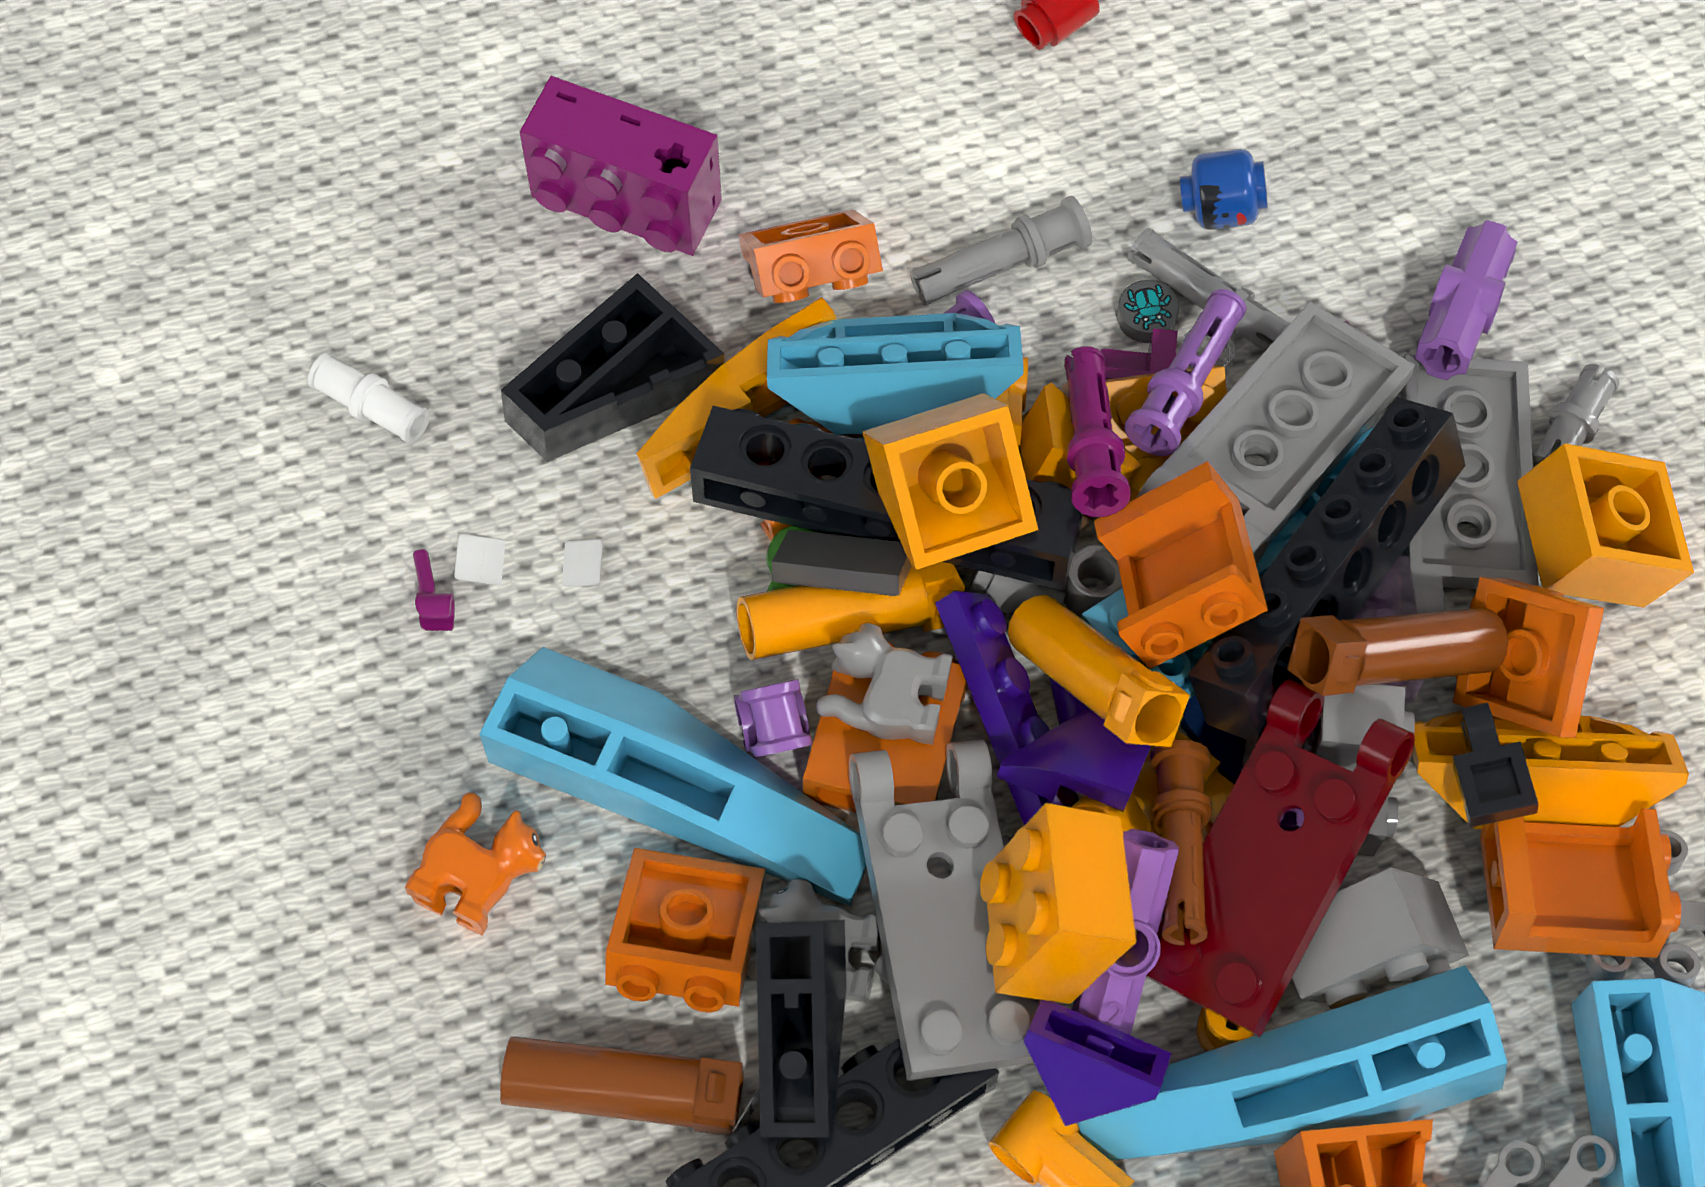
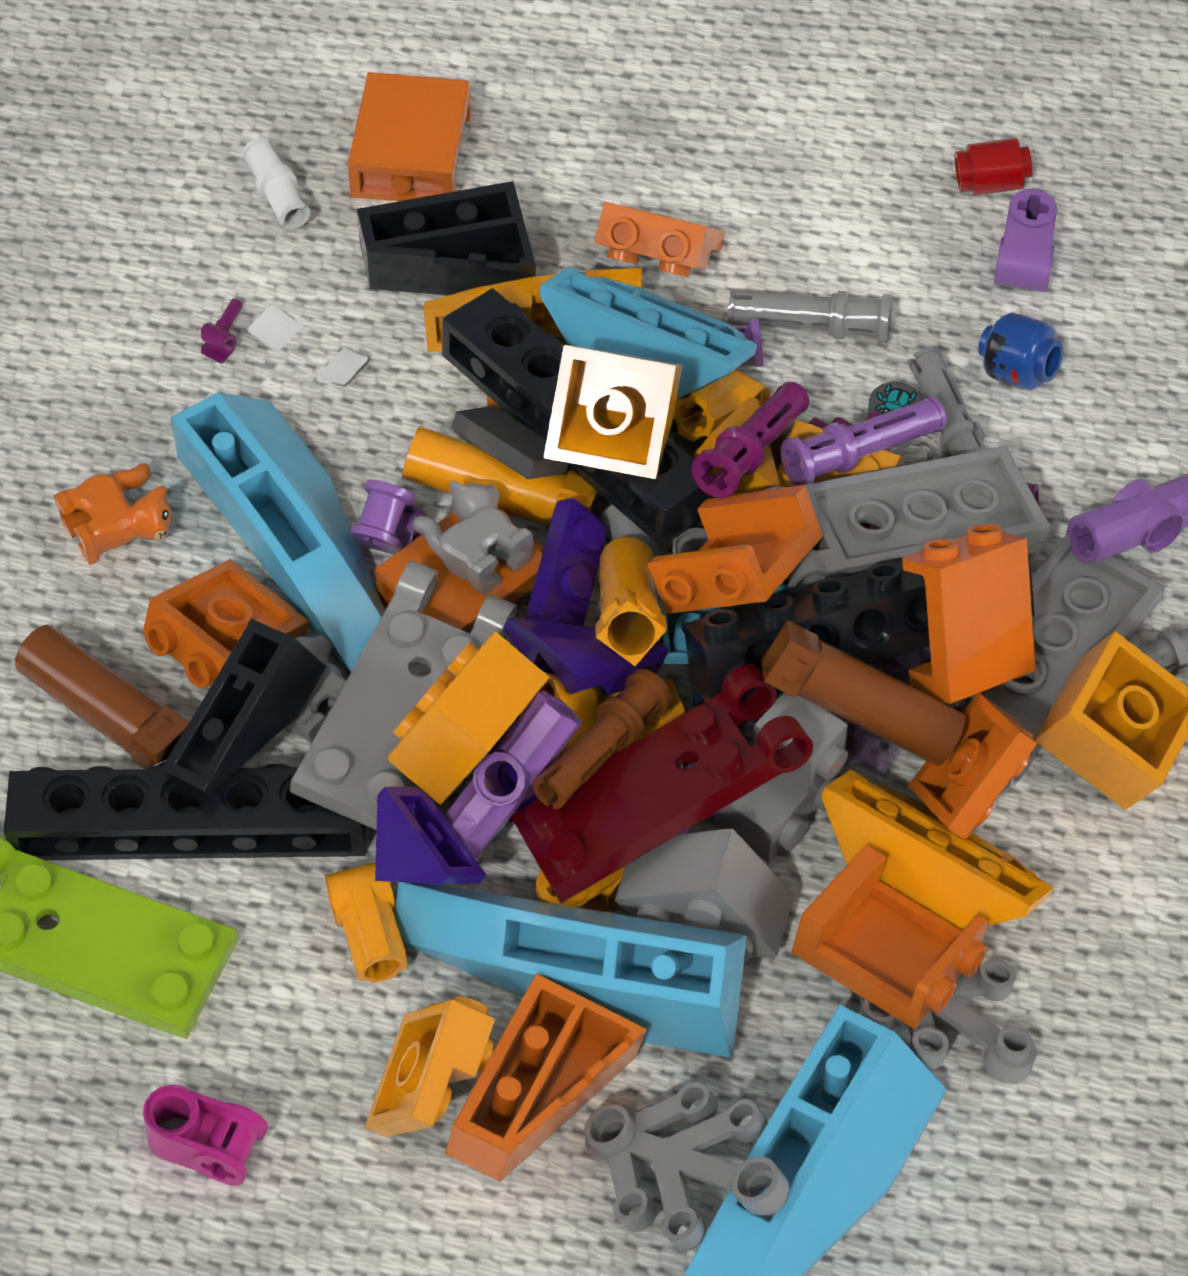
camera: 35 degrees right, 10 degrees down
(475, 274) = (407, 136): none -> orange panel
(621, 166) = (564, 112): magenta piece -> none
(1150, 72) = (1027, 242): none -> medium lavender piece
(1438, 472) = (975, 612): none -> orange panel
(1491, 777) = (868, 820): black plate -> none

